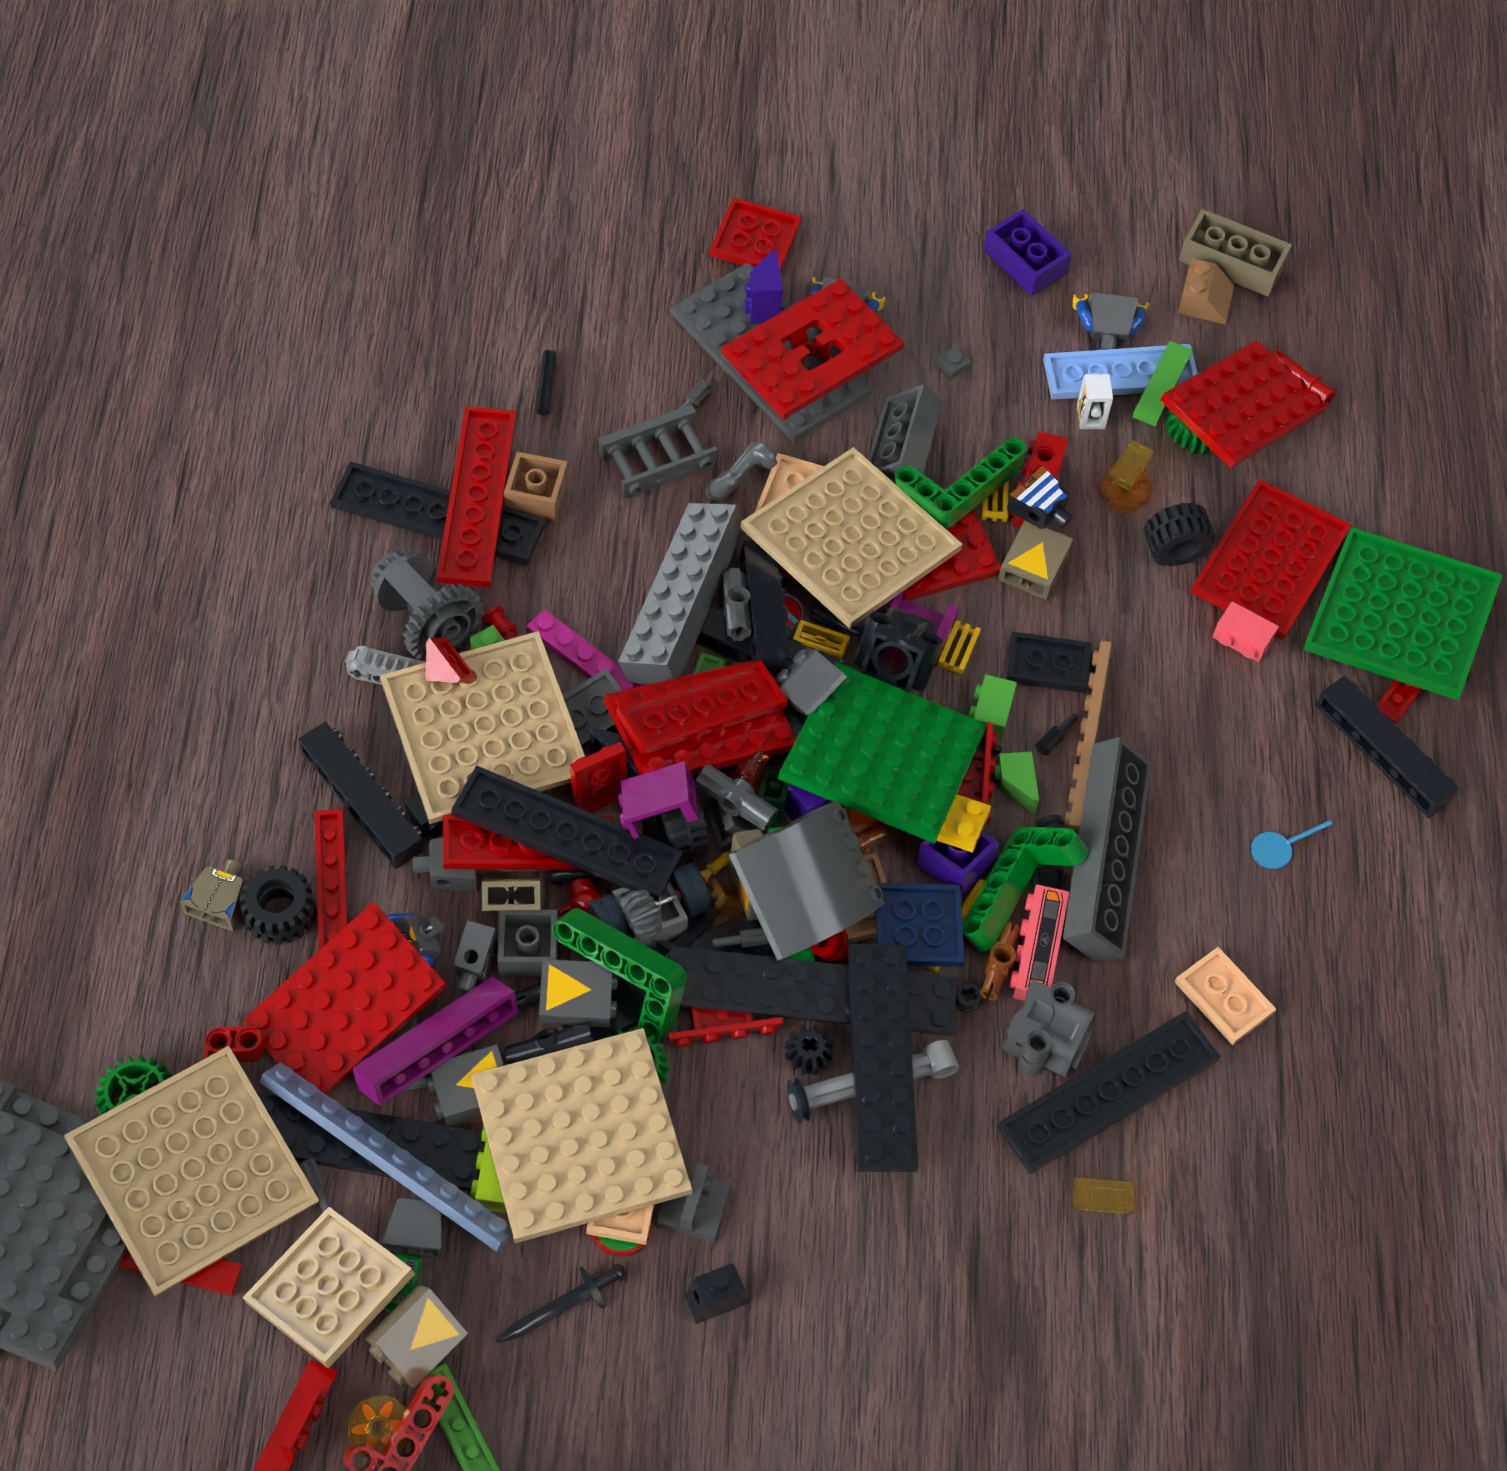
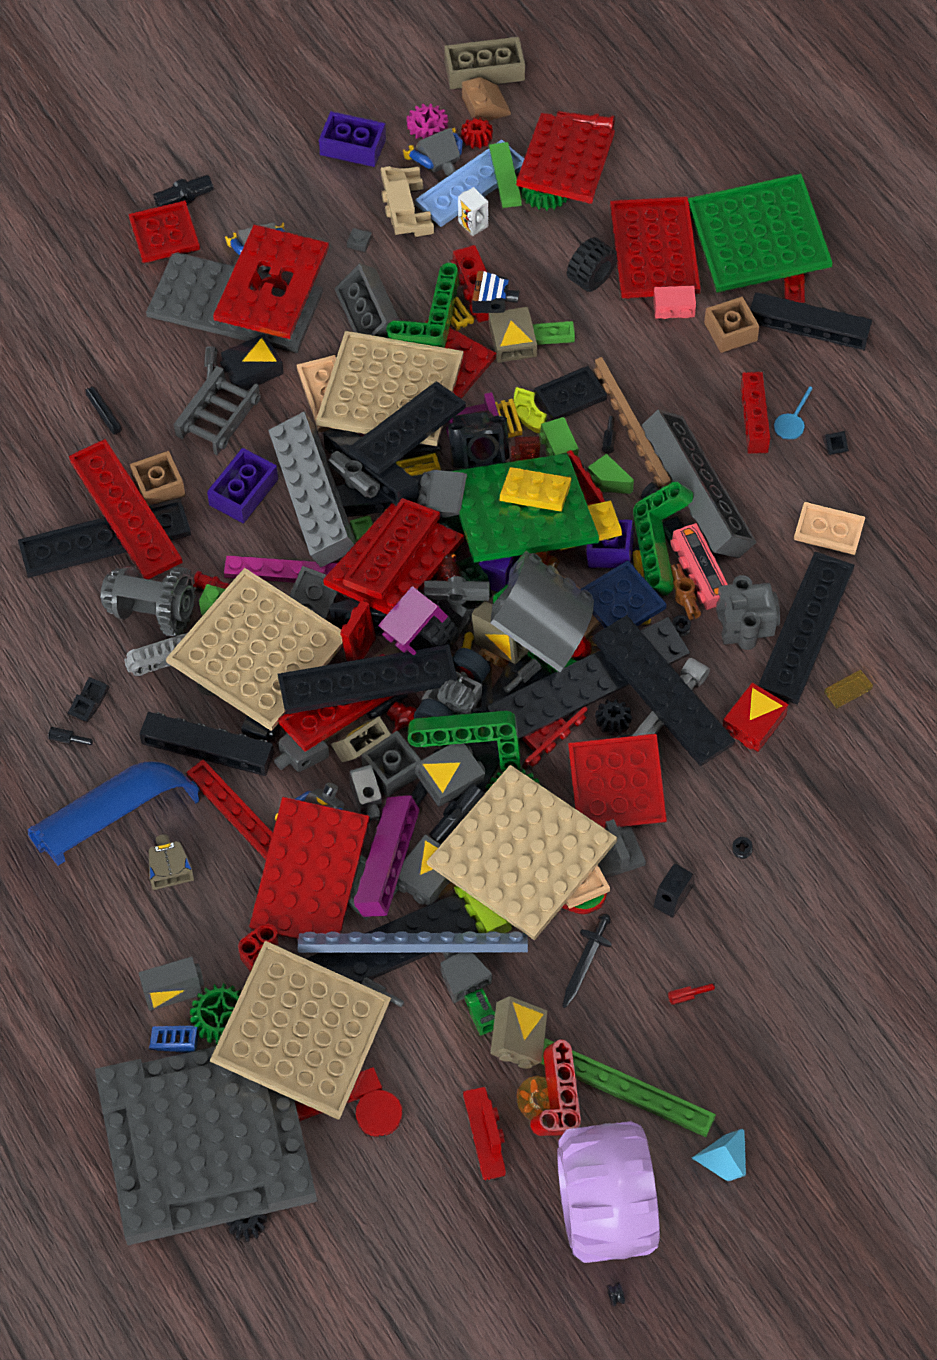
camera: 30 degrees left, 0 degrees up
(86, 1103) = (183, 1031): none -> blue slope
(108, 1025) = (171, 983): none -> dark grey brick
(200, 791) = (105, 805): none -> blue panel
(206, 1319) = (378, 1113): none -> red tile
(232, 695) = (67, 736): none -> black axle
(271, 885) = (210, 827): black tyre -> none
(284, 673) = (89, 700): none -> black slope
(328, 1286) = (441, 1041): tan plate -> none
(445, 663) = (204, 624): slope -> none
(617, 545) = (242, 485): none -> dark purple brick
(640, 1423) = (687, 993): none -> red axle
(731, 422) = (252, 363): none -> black brick
(749, 1127) = (618, 780): none -> red plate
(754, 455) = (279, 402): dark grey piece -> none
(764, 290) = (209, 263): dark purple slope -> none
(809, 206) = (184, 191): none -> black piece
(828, 588) = (407, 427): none -> black plate
(837, 1306) = (737, 843): none -> black bush
(911, 740) = (535, 489): none -> yellow plate
(943, 691) = (525, 448): none -> clear red bracket
(966, 1156) = (755, 717): none -> red brick
(988, 649) = (527, 410): none -> neon yellow tile
(1026, 342) = (399, 201): none -> tan bracket
(1082, 585) = (554, 333): none -> bright green plate
(1124, 278) = (426, 121): none -> dark pink gear
(1125, 501) = (531, 247): clear orange plate -> none
(1130, 465) = (526, 239): clear yellow tile -> none
(1169, 322) = (476, 133): none -> red gear
(1240, 810) = (755, 412): none -> red brick
(1289, 695) = (731, 324): none -> medium nougat brick
(1310, 903) = (835, 443): none -> black slope

